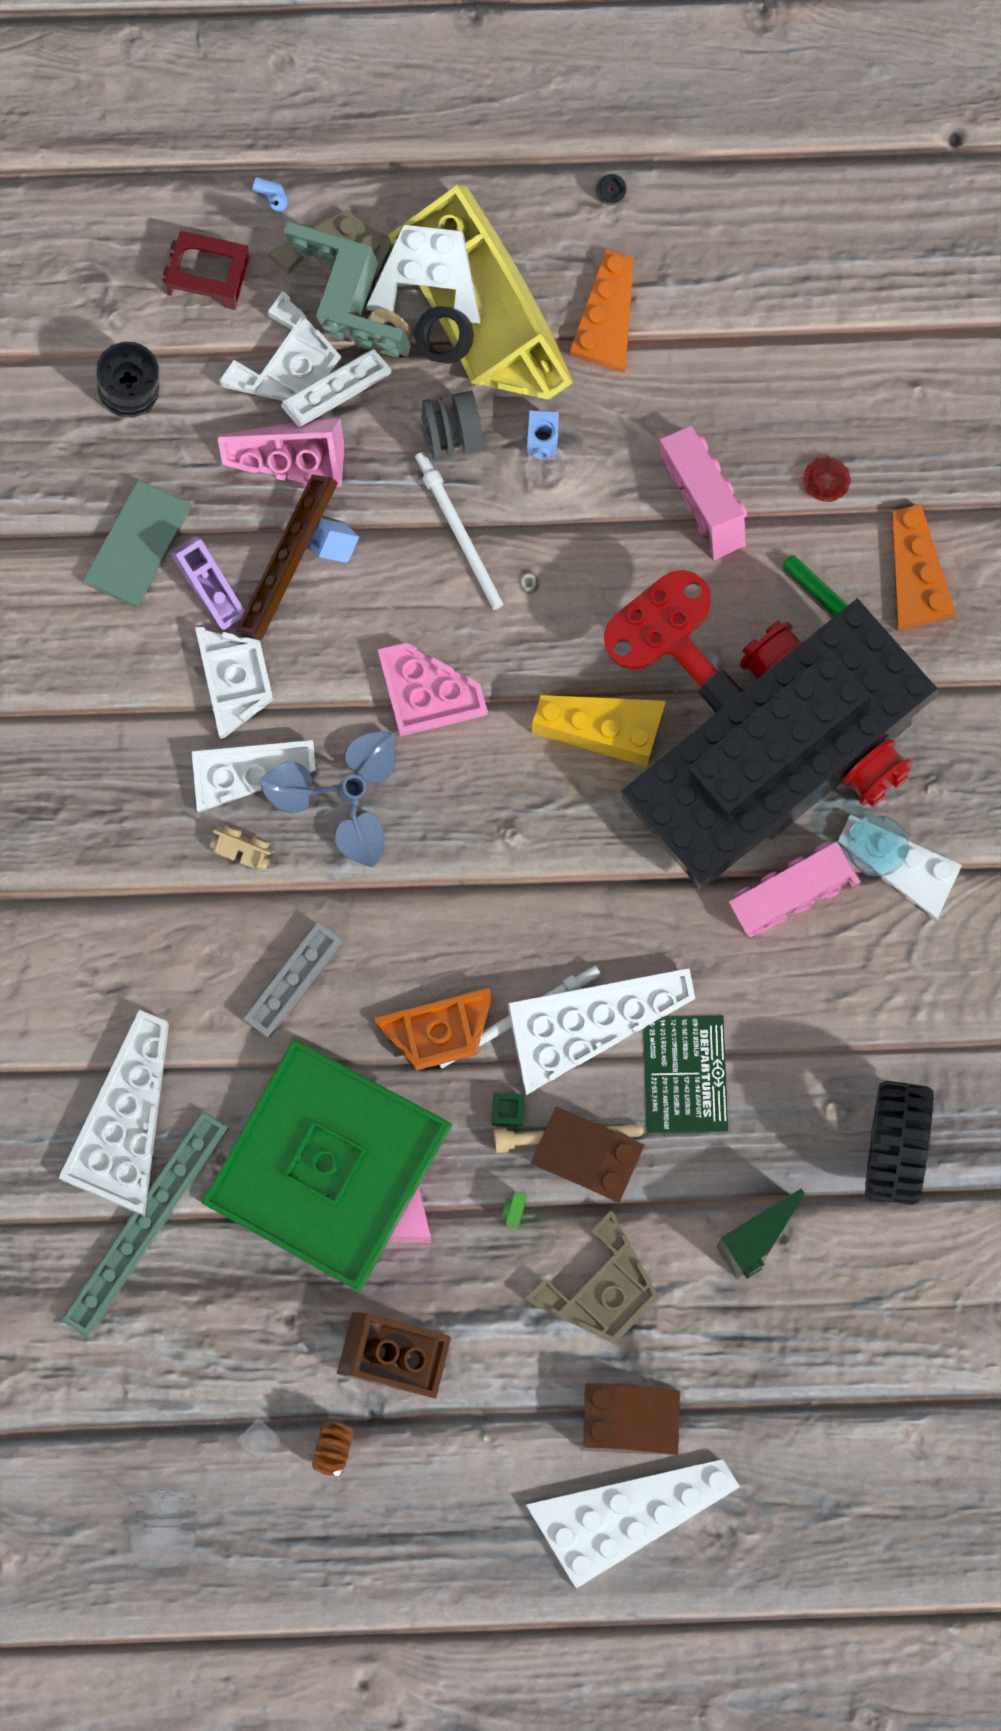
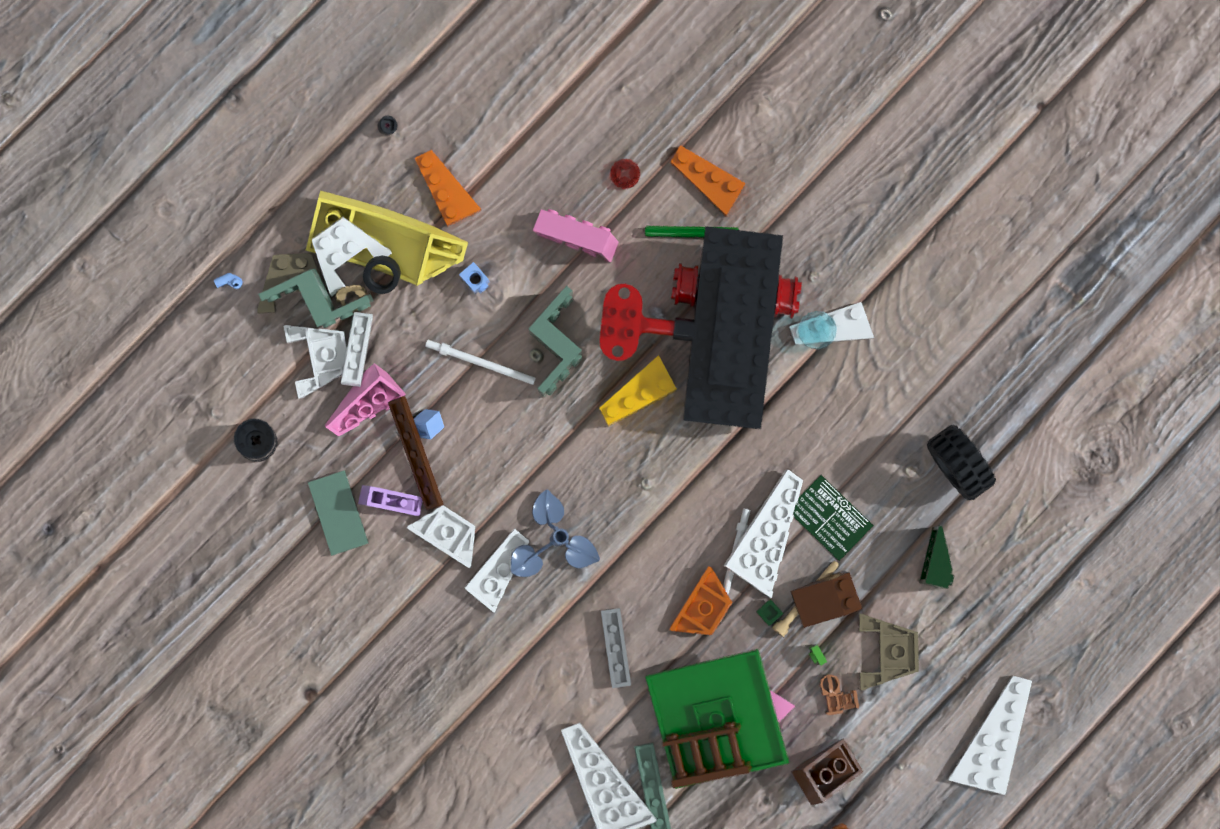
camera: 45 degrees left, 10 degrees up
(226, 291) = (231, 367): dark red panel -> none
(247, 1205) = (702, 774): none -> reddish brown fence
(254, 849) = (522, 610): tan hinge -> none
(427, 691) = (542, 453): bright pink plate -> none
(452, 425) = (430, 316): dark grey wheel -> none
(487, 1287) = (837, 701): none -> nougat piece
(565, 604) = (556, 341): none -> sand green bracket
(630, 1419) = (957, 698): reddish brown slope -> none
(793, 888) = (800, 387): bright pink wedge -> none

